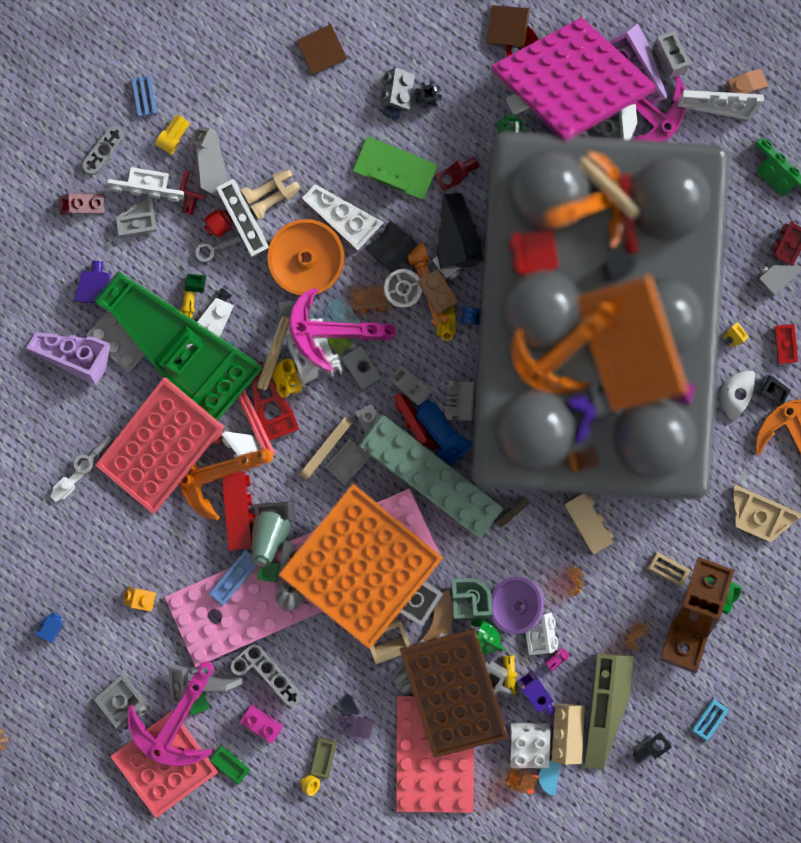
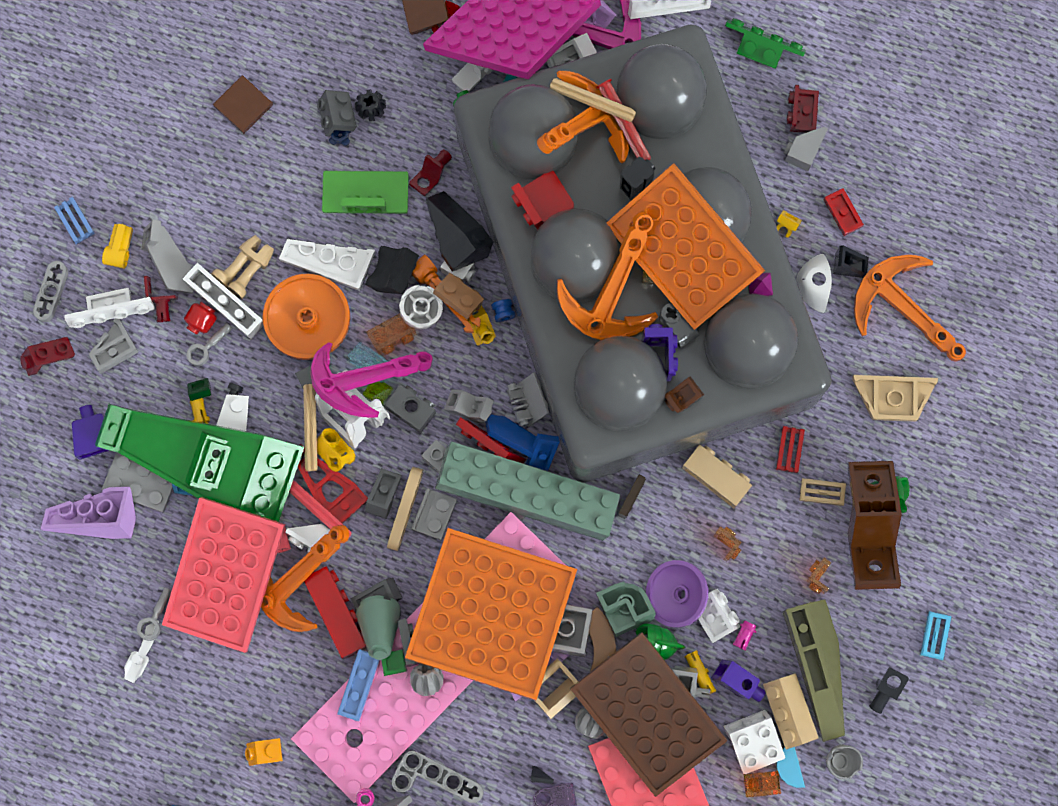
camera: 20 degrees left, 10 degrees down
(312, 429) = (382, 493): none -> dark grey plate
(594, 789) = (844, 761): none -> light grey hair
(664, 527) = (792, 431): none -> red tile

